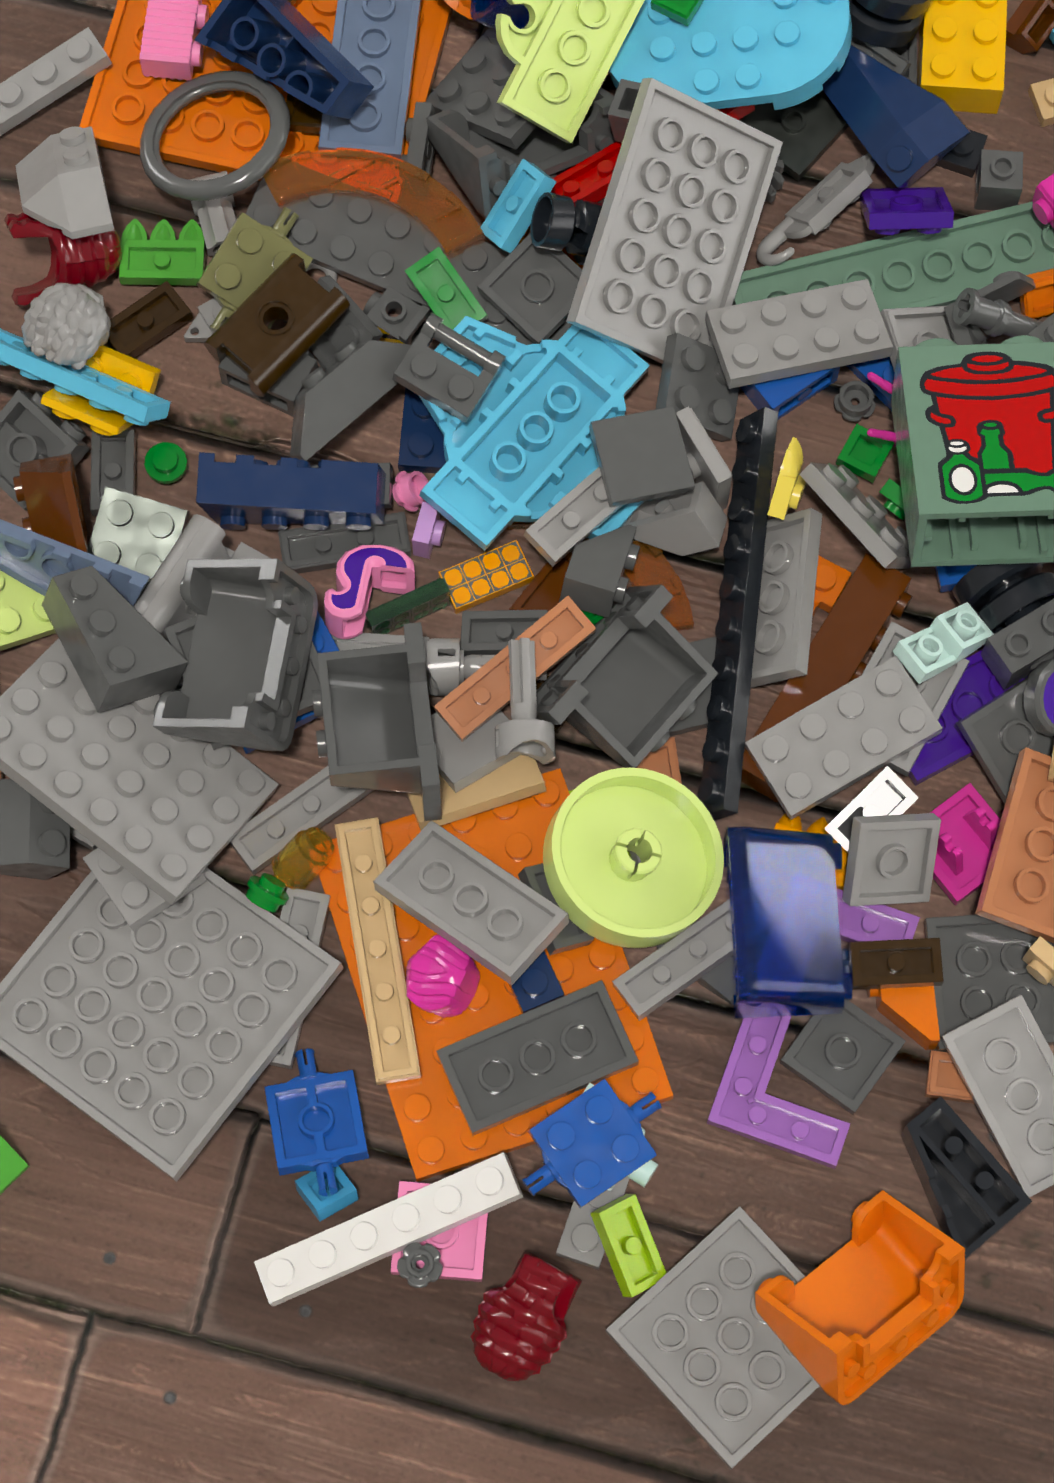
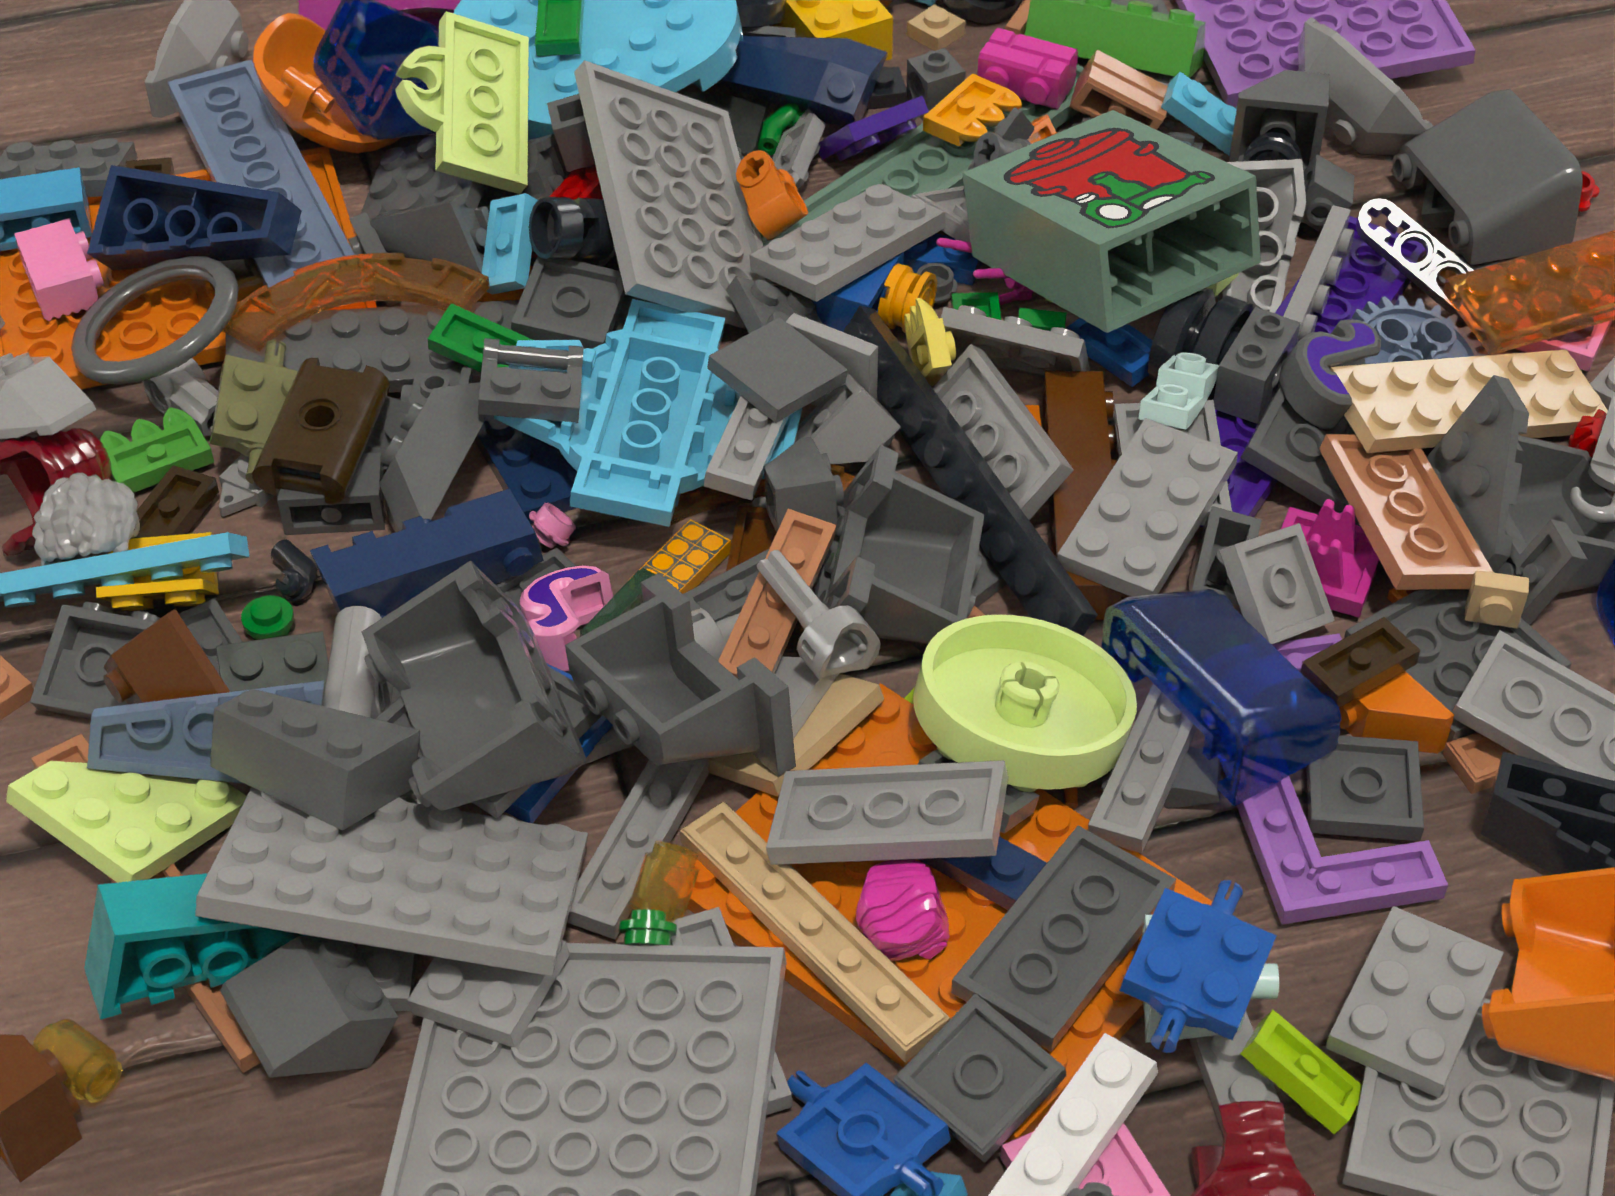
camera: 30 degrees left, 25 degrees down
(211, 430) = (298, 571): none -> black arm
(410, 1129) = (981, 1077): none -> dark grey plate
(428, 531) = (593, 545): lavender plate -> none
(740, 1240) = (1415, 1001): none -> light grey plate
(764, 257) = (769, 194): none -> orange piece
(815, 413) = (902, 293): none -> light orange wheel
(836, 152) = (775, 126): none -> green arm
(999, 234) = (970, 110): none -> light orange plate

